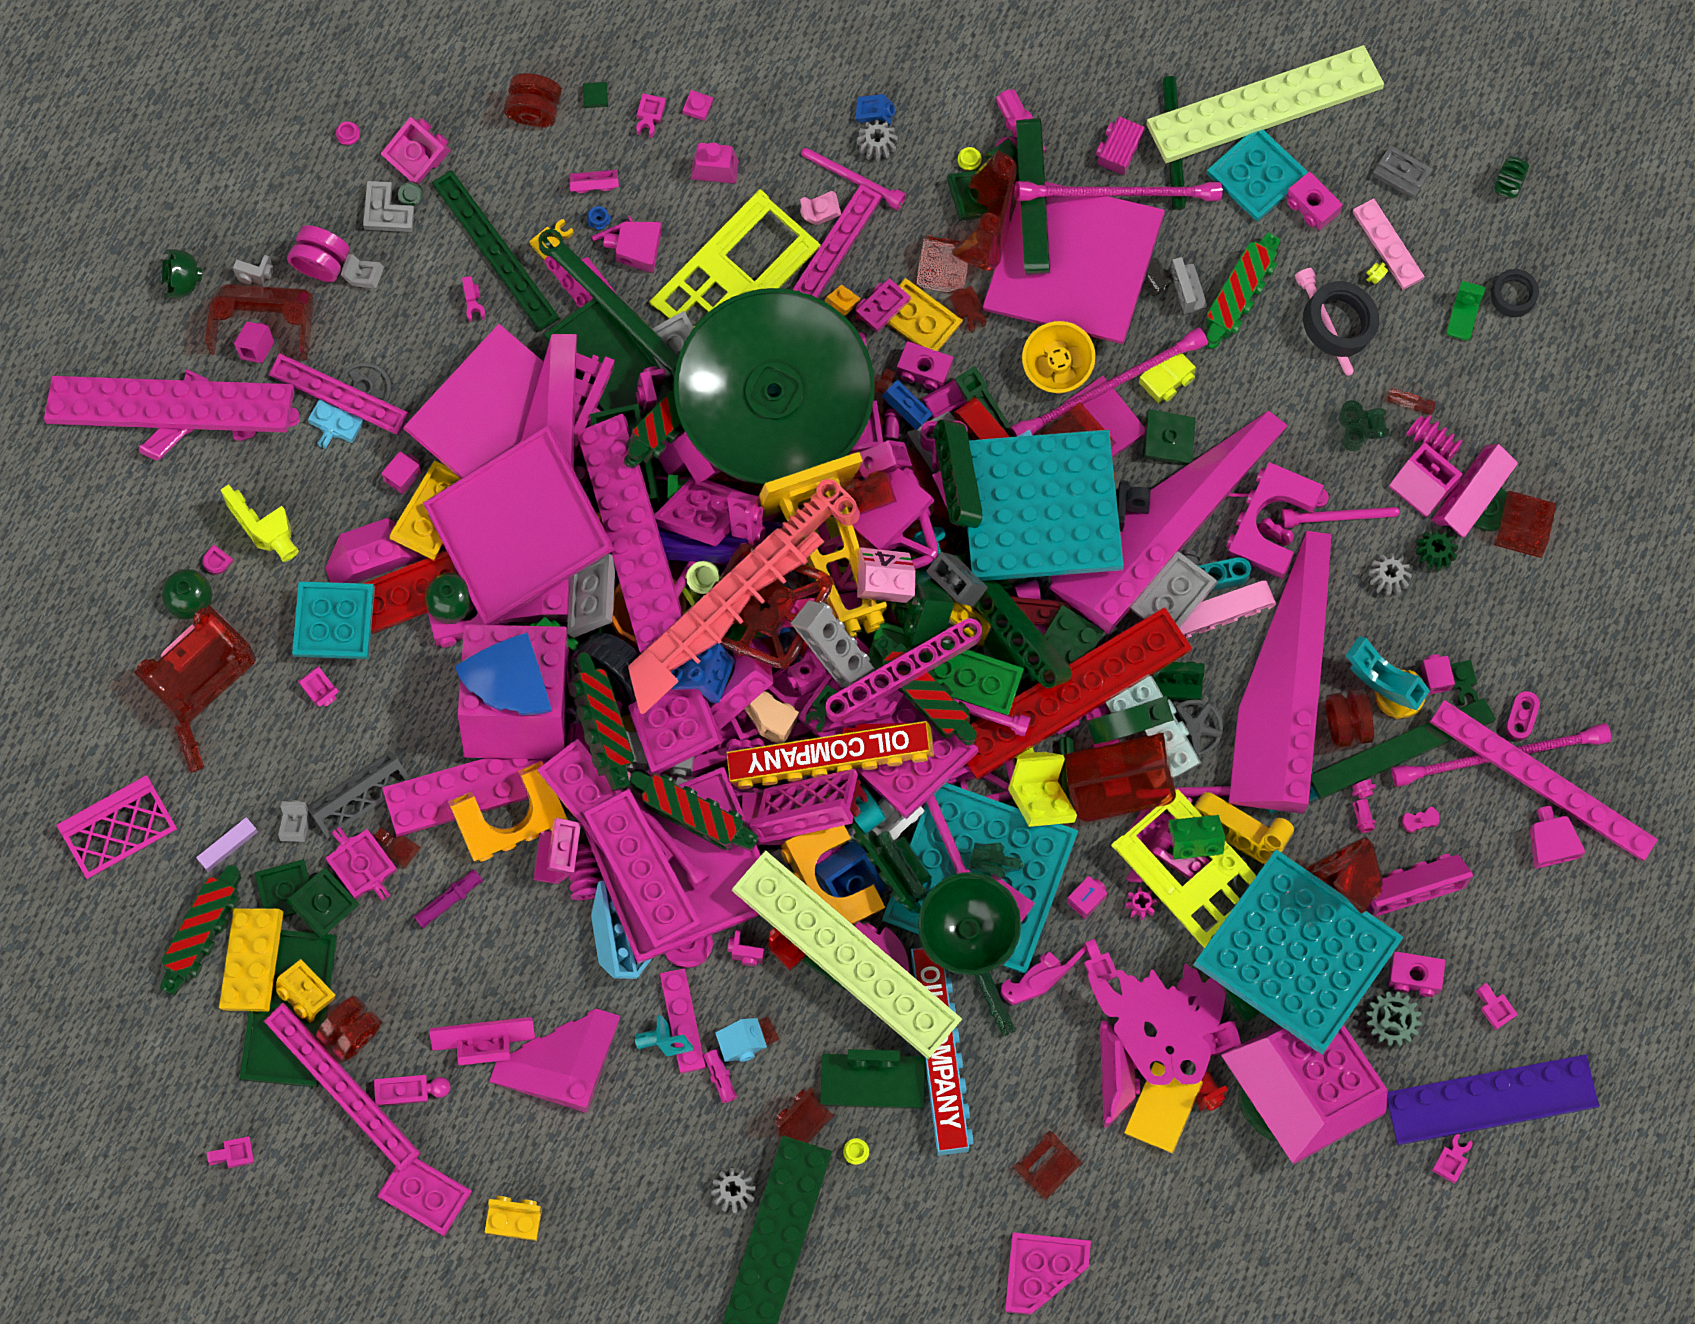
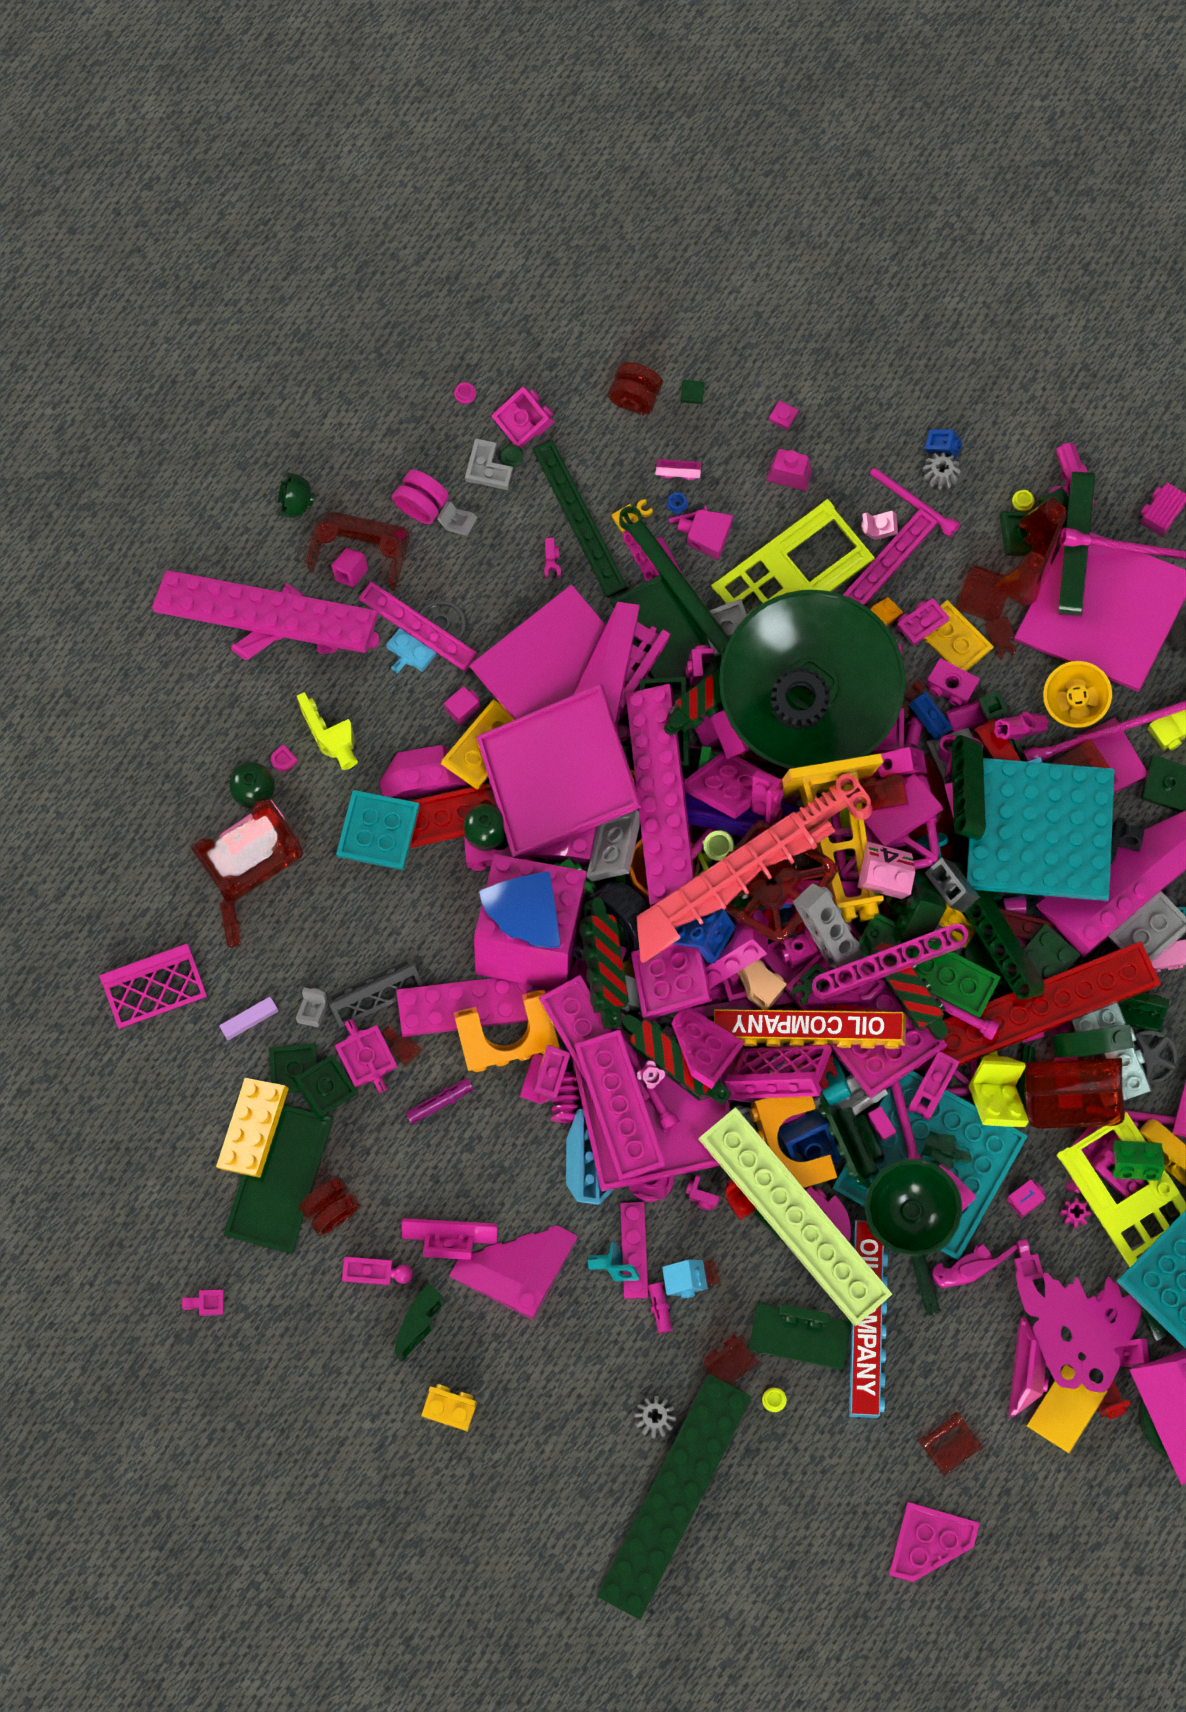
camera: 15 degrees right, 0 degrees up
(199, 929) = (210, 1092): dark green hinge -> none
(250, 273) = (355, 504): light grey bracket -> none
(303, 990) = (294, 1164): yellow bracket -> none
(318, 687) = (355, 888): dark pink bracket -> none
(342, 1087) = (315, 1259): dark pink tile -> none
(425, 1195) = (373, 1370): dark pink tile -> none
(465, 1132) = (417, 1321): none -> dark green slope
(650, 112) = (739, 414): dark pink plate -> none
(677, 831) = (651, 1067): none -> plate
(722, 791) = (705, 1045): none -> dark pink plate
(735, 744) = (723, 1004): dark pink piece -> none
(764, 428) = (806, 680): none -> black tyre
(923, 844) = (881, 1124): none -> dark pink piece
(971, 793) = (934, 1084): none -> dark pink plate
(1004, 400) = (1021, 726): none -> dark pink piece

